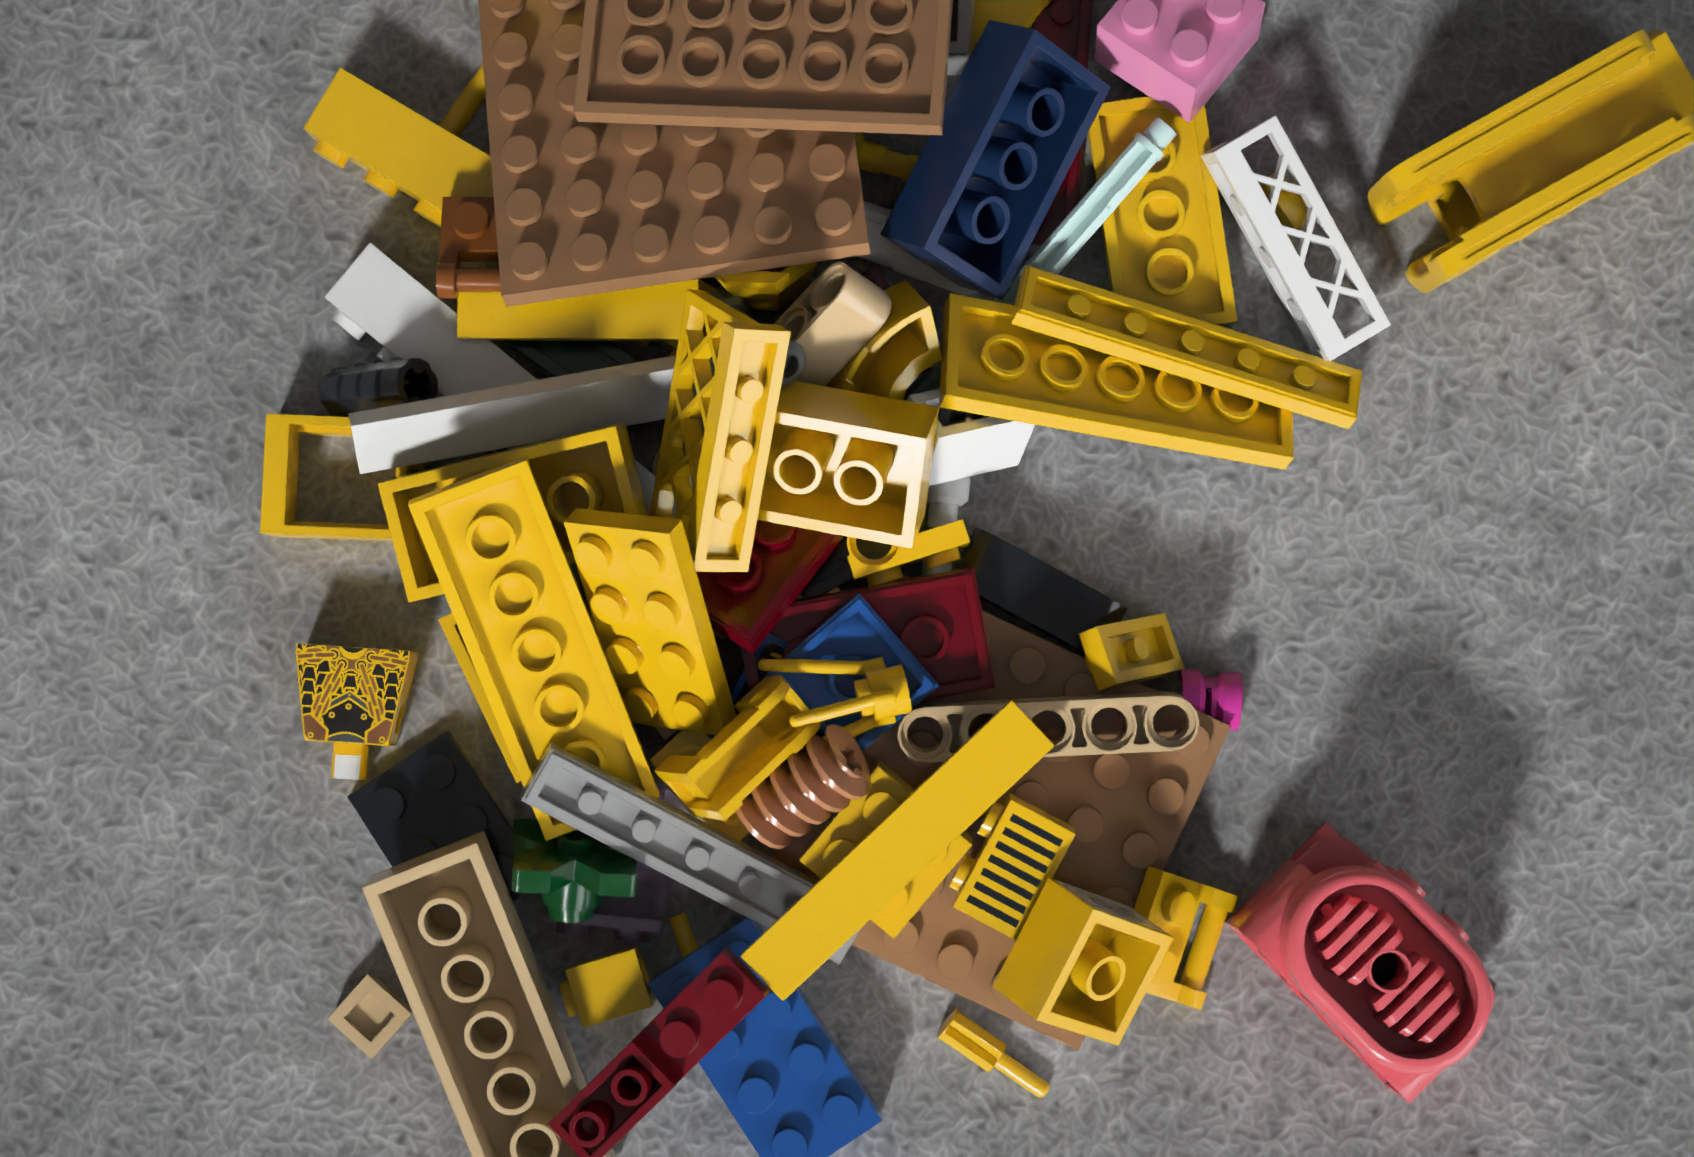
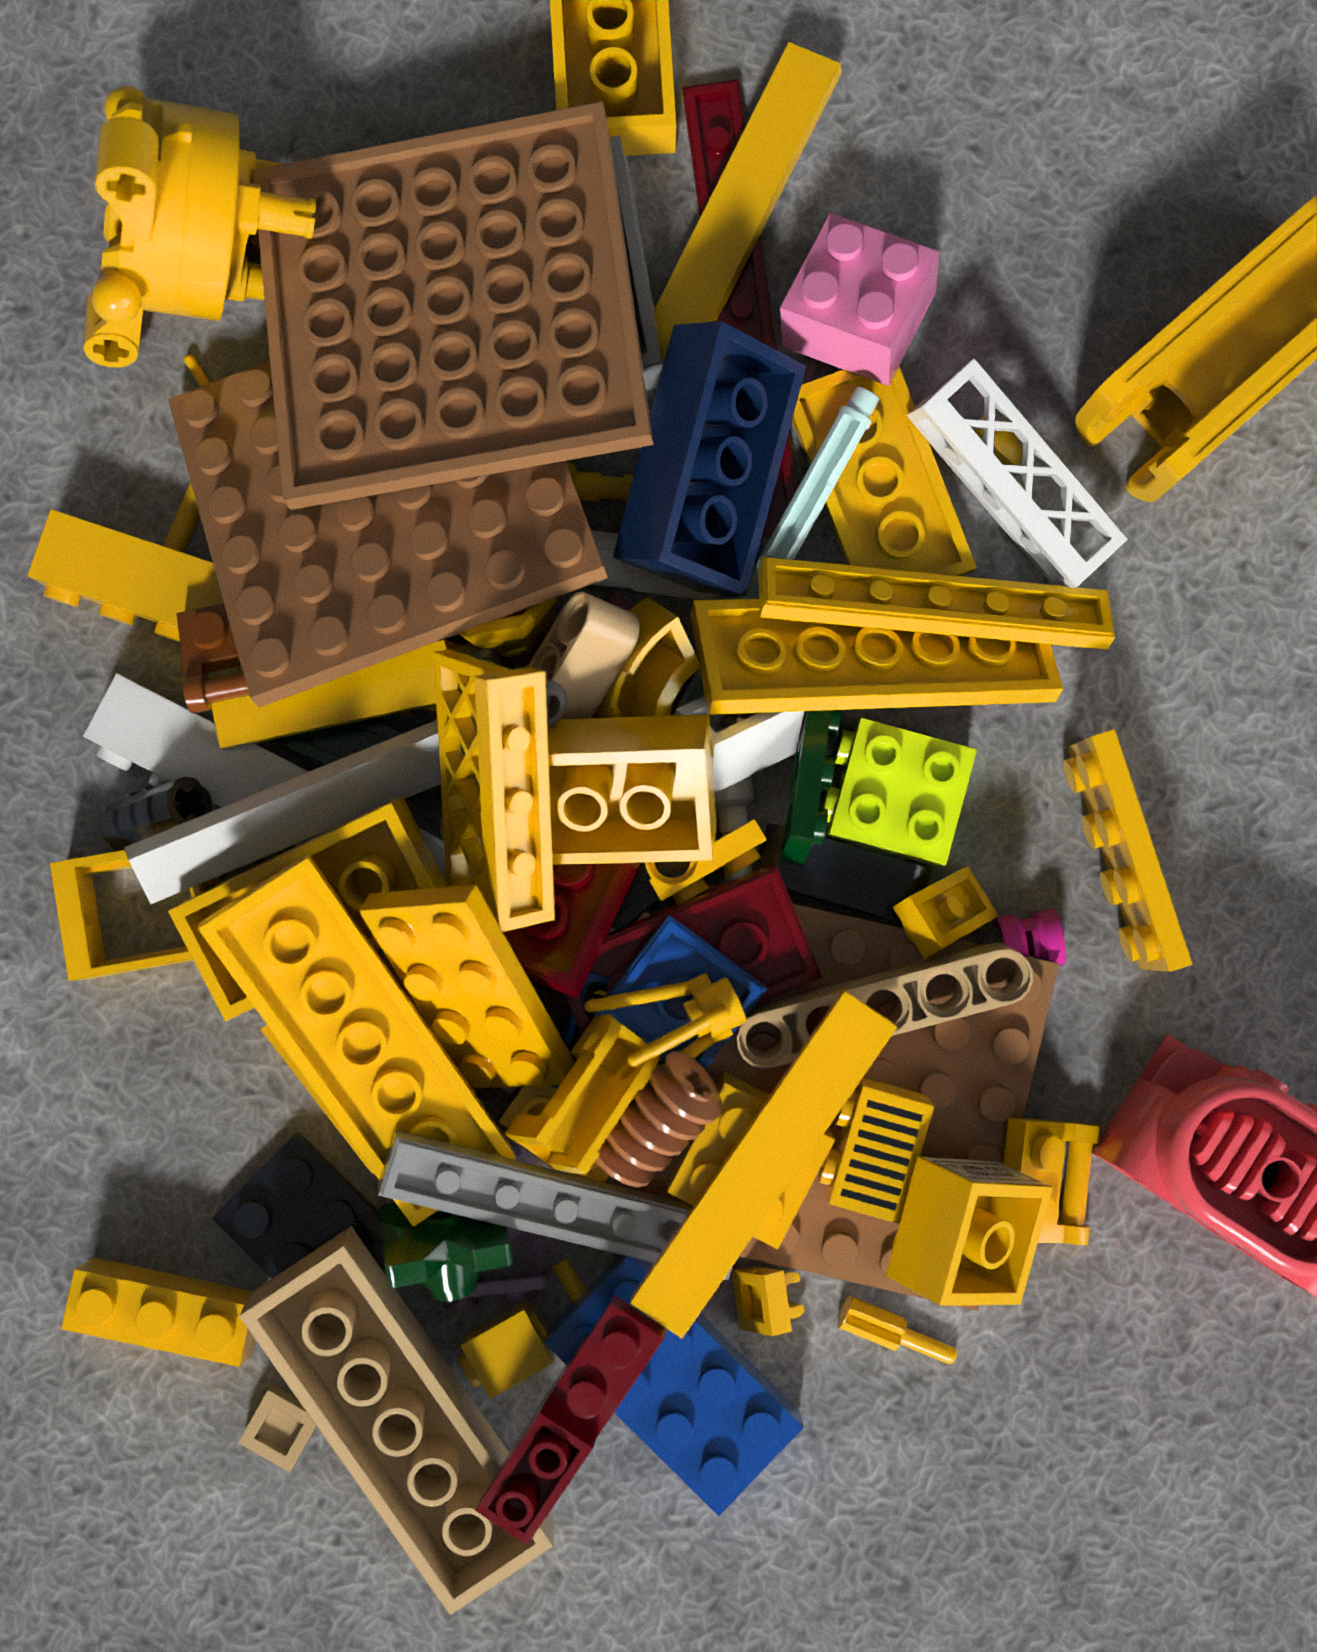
camera: 15 degrees left, 0 degrees up
(280, 875) = (159, 1311): none -> yellow brick
(353, 700) = (196, 1124): torso -> none
(870, 993) = (763, 1300): none -> yellow tile
(1028, 488) = (810, 775): none -> dark green plate
(1110, 524) = (898, 791): none -> neon yellow brick
(1318, 609) = (1132, 866): none -> yellow plate

